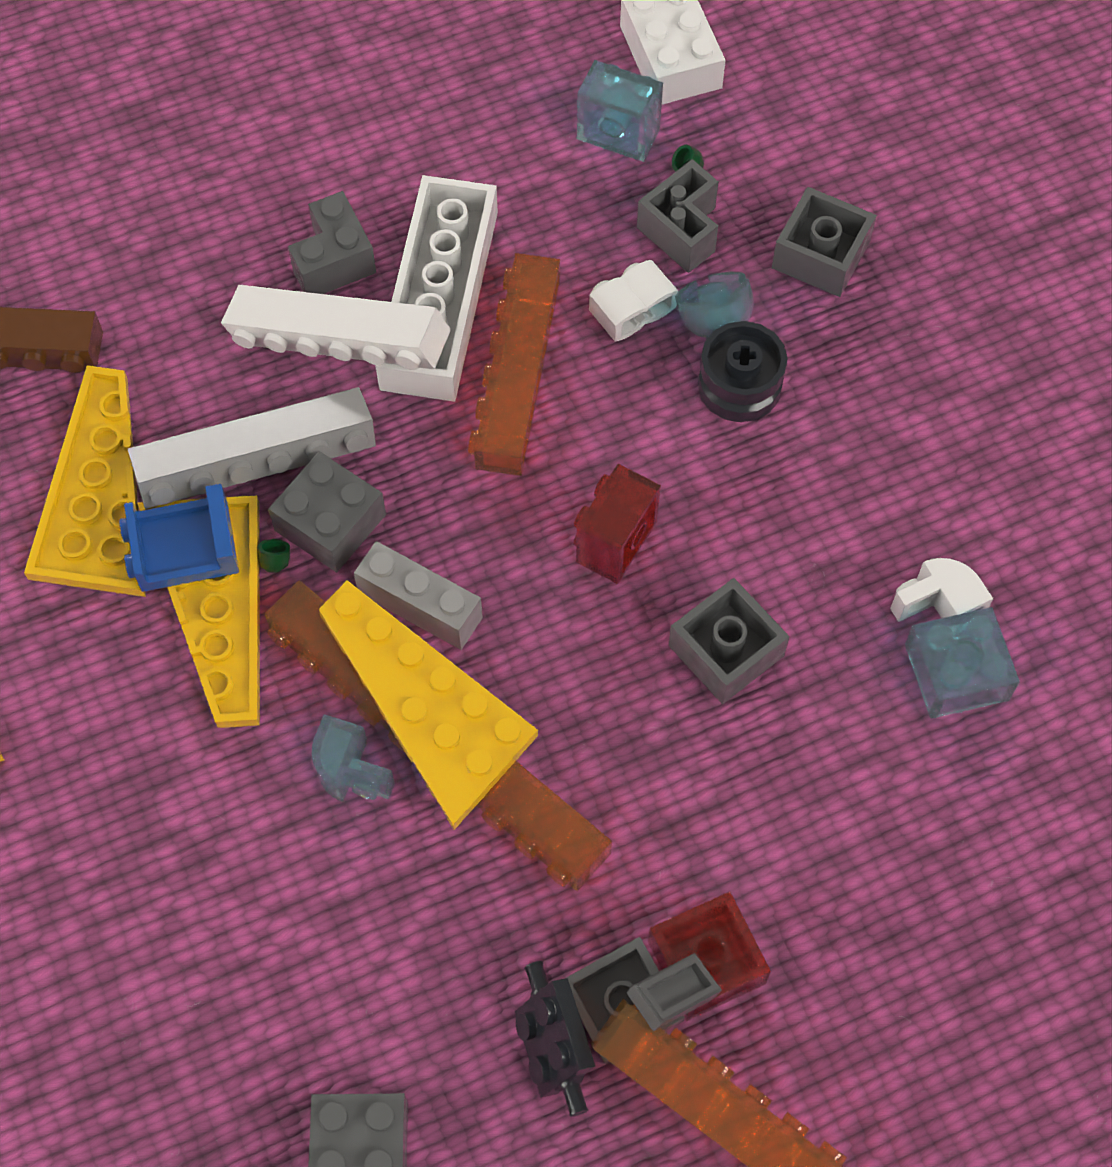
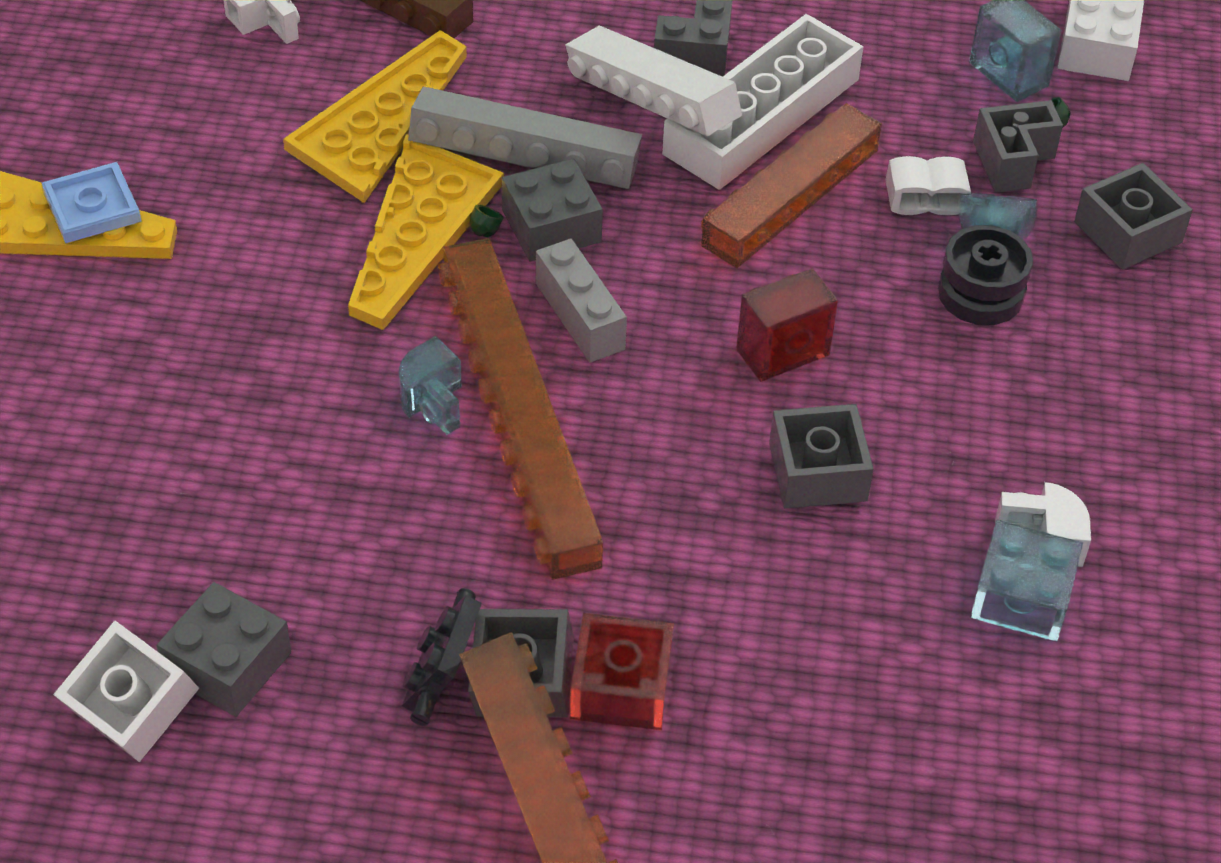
camera: 30 degrees right, 15 degrees down
(180, 541) = (416, 170): blue panel -> none
(440, 715) = (527, 377): yellow wing -> none
(673, 991) = (561, 655): dark grey tile -> none

